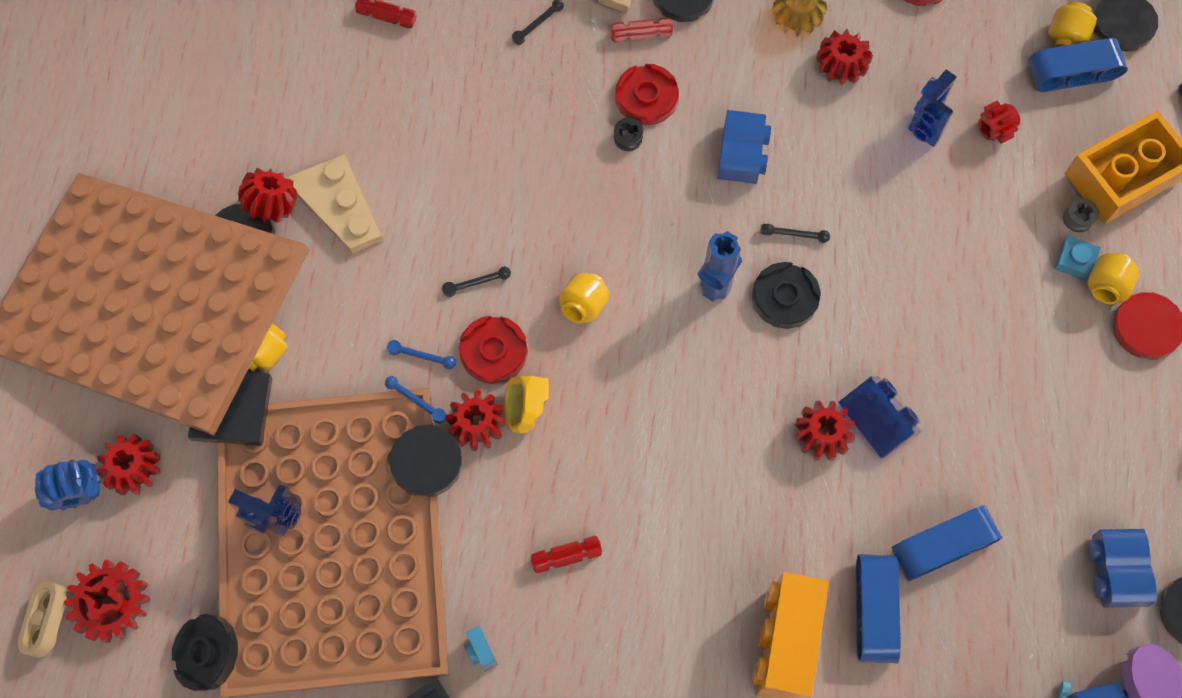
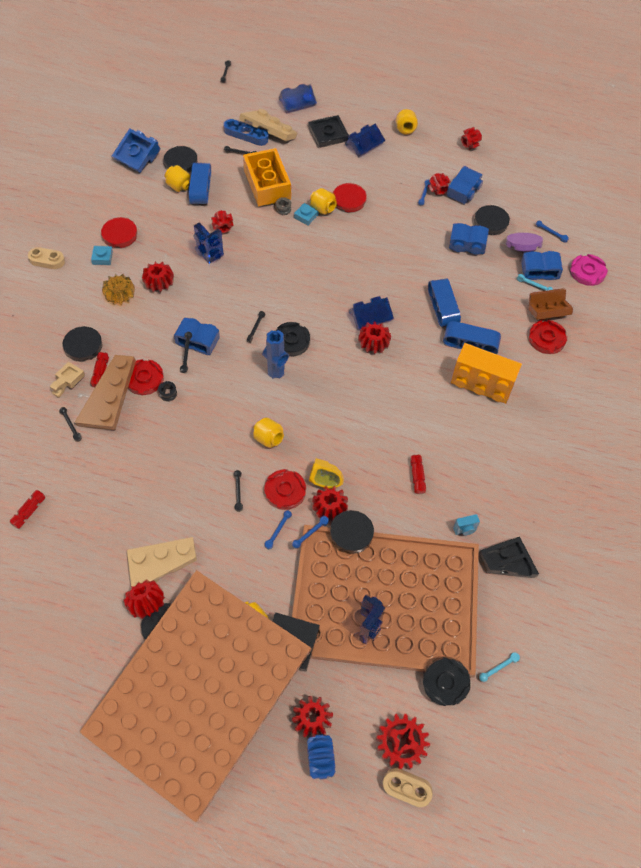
camera: 80 degrees left, 10 degrees down
(591, 54) = (107, 398): none -> medium nougat wing
(679, 146) = (184, 368): none -> black hinge

